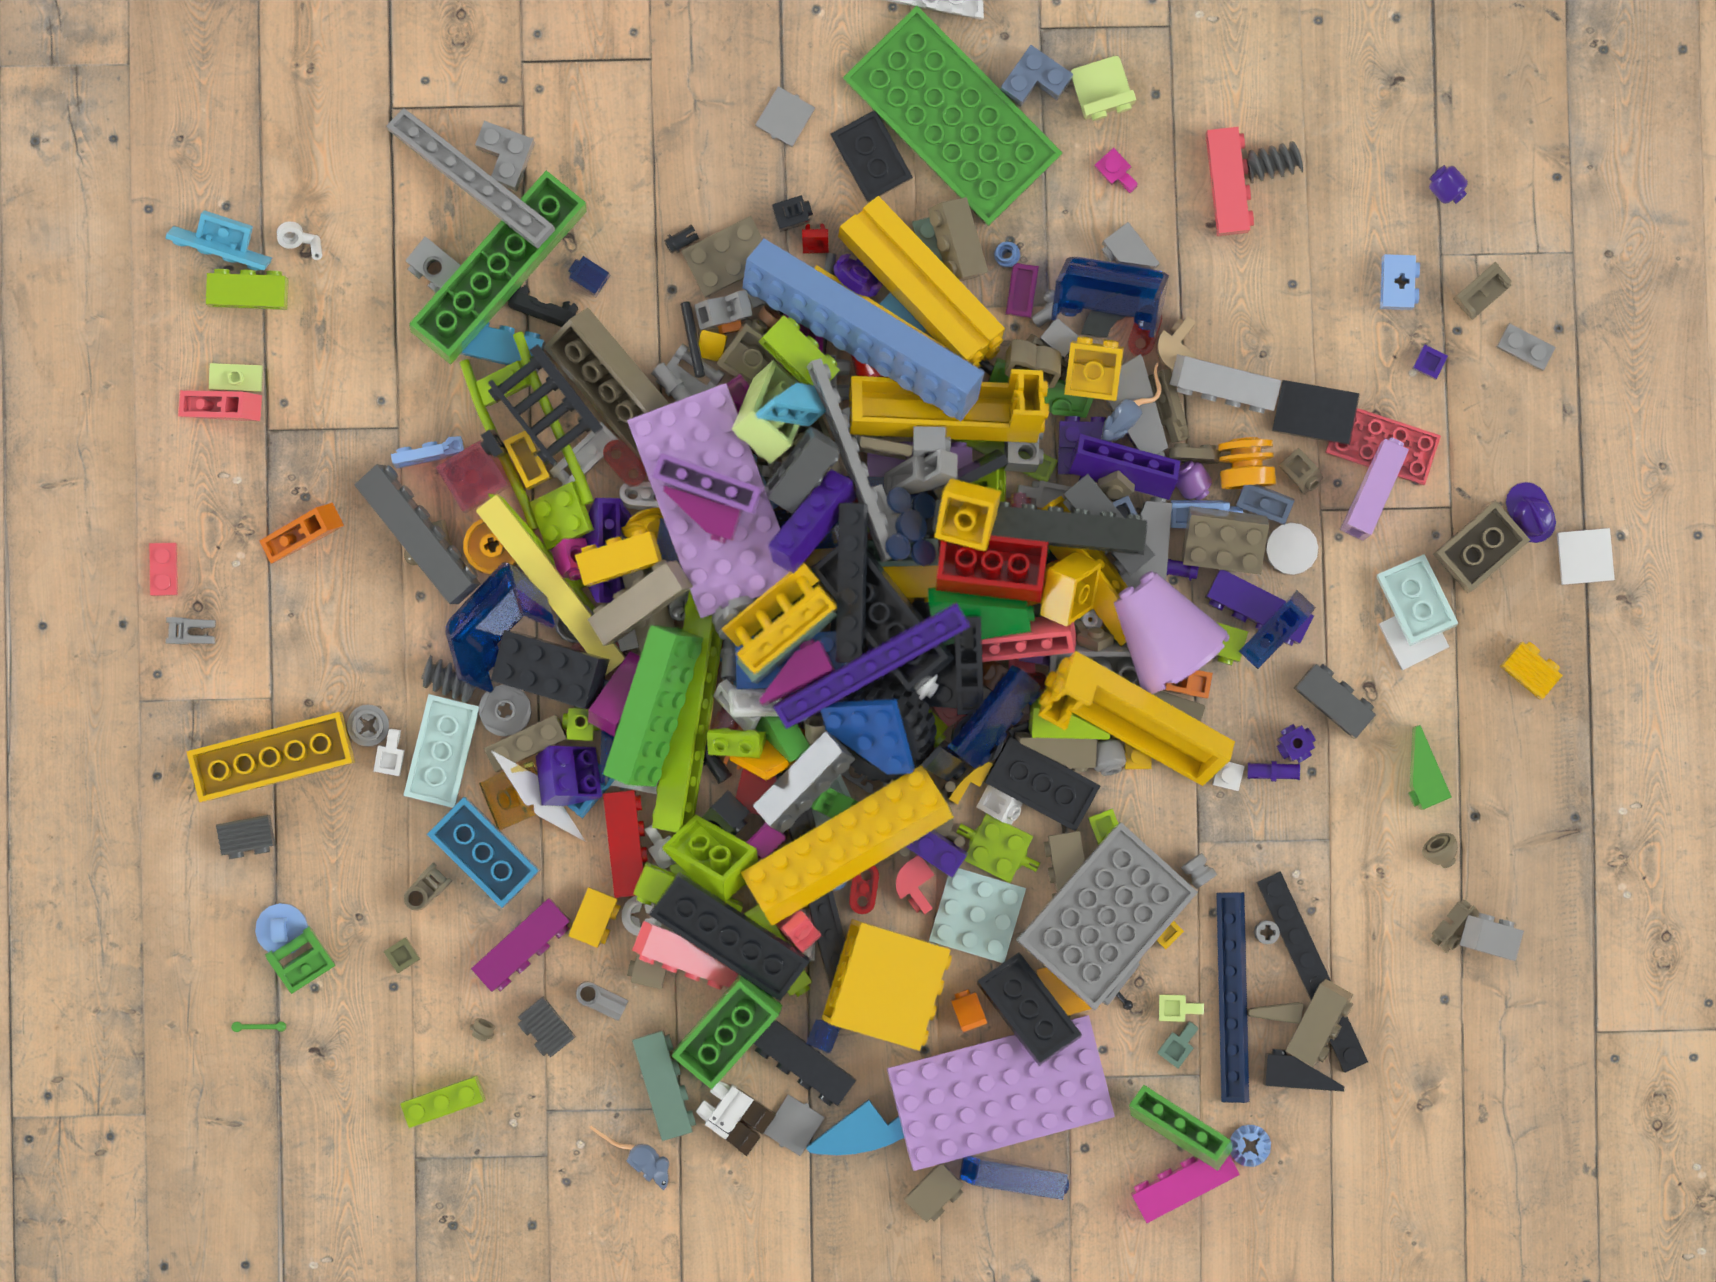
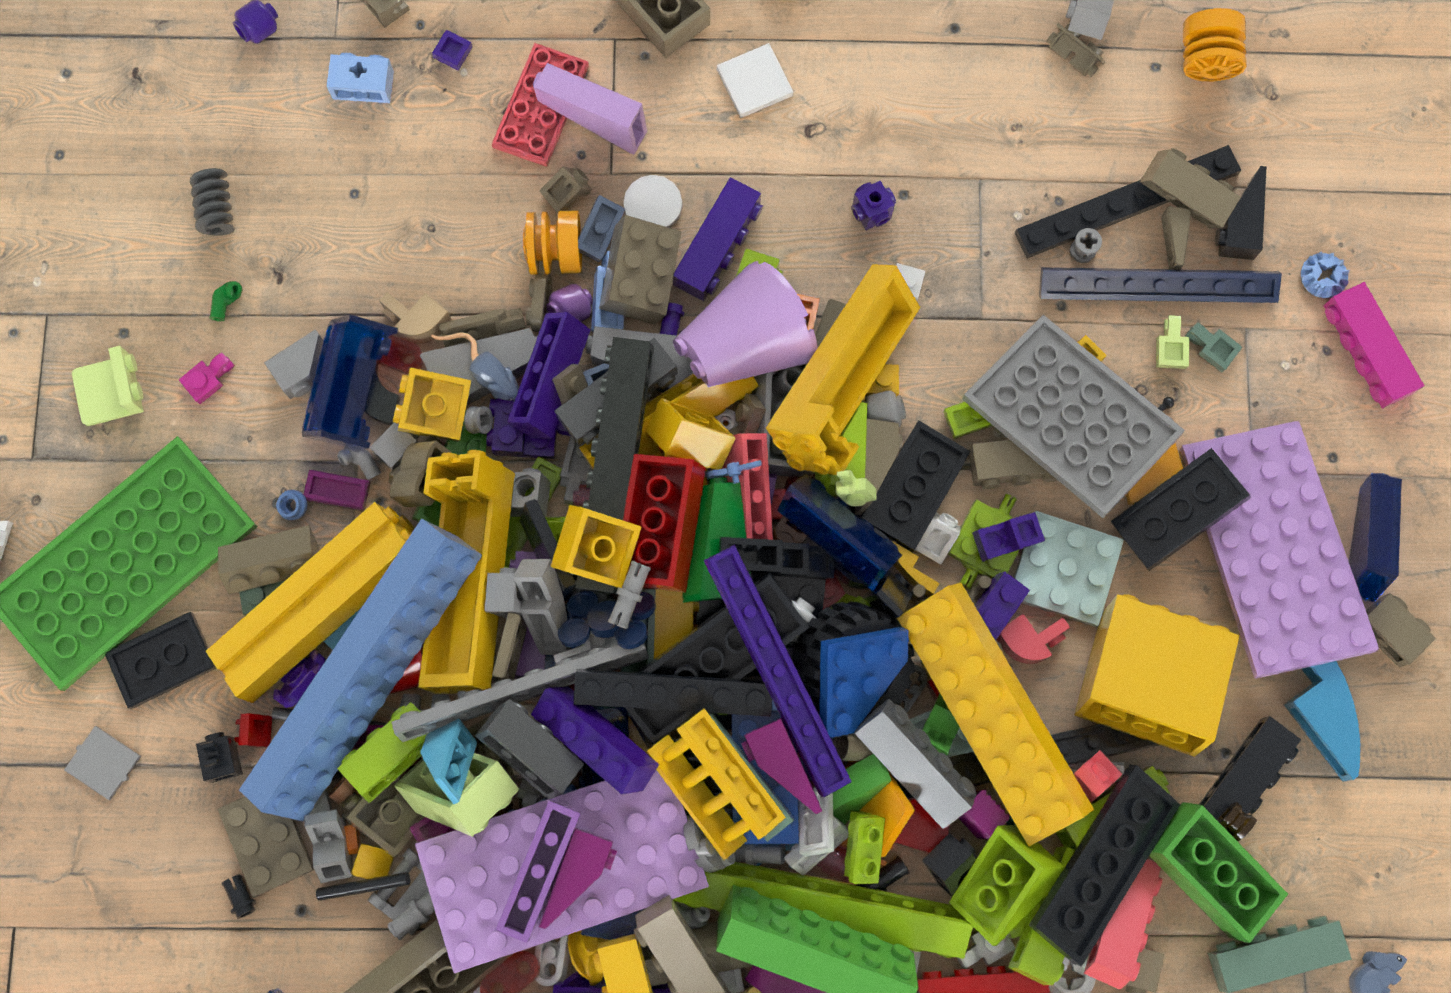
camera: 85 degrees left, 10 degrees down
(733, 1107) = (1315, 864): hips -> none
(767, 1046) = (1236, 821): none -> dark brown wheel
(794, 1125) = (1318, 795): light grey piece -> none
(823, 1035) = (1217, 757): clear blue brick -> none
(864, 888) = (1039, 693): red plate -> none
(928, 543) = (629, 594): none -> light grey pin
(968, 1010) = (1184, 579): orange slope -> none
(1000, 862) = (1008, 536): none -> dark purple slope
(1028, 727) = (854, 491): none -> yellowish green plate
(1032, 71) = (79, 459): sand blue brick -> none
(1039, 626) = (733, 470): none -> medium blue piece
(1083, 408) = (478, 419): none -> light grey bush
(1180, 1127) = (1316, 341): bright green brick -> none
(1189, 178) = (222, 298): none -> green arm
(1200, 872) = (1017, 315): light grey wheel -> none
(1225, 382) = (458, 262): light grey brick -> none
(1228, 181) = (229, 253): coral brick -> none
(1273, 771) = (903, 232): dark purple pin -> none
(1277, 629) = (745, 212): clear blue slope -> none
(1316, 412) = (500, 169): black tile -> none
(1335, 700) = (825, 162): dark grey brick -> none
(1417, 600) = (716, 71): light aqua plate -> none
(1425, 776) = (907, 73): bright green slope -> none
(1441, 849) = (992, 59): dark tan brick -> none
(1458, 1047) = (1214, 44): none -> light orange wheel

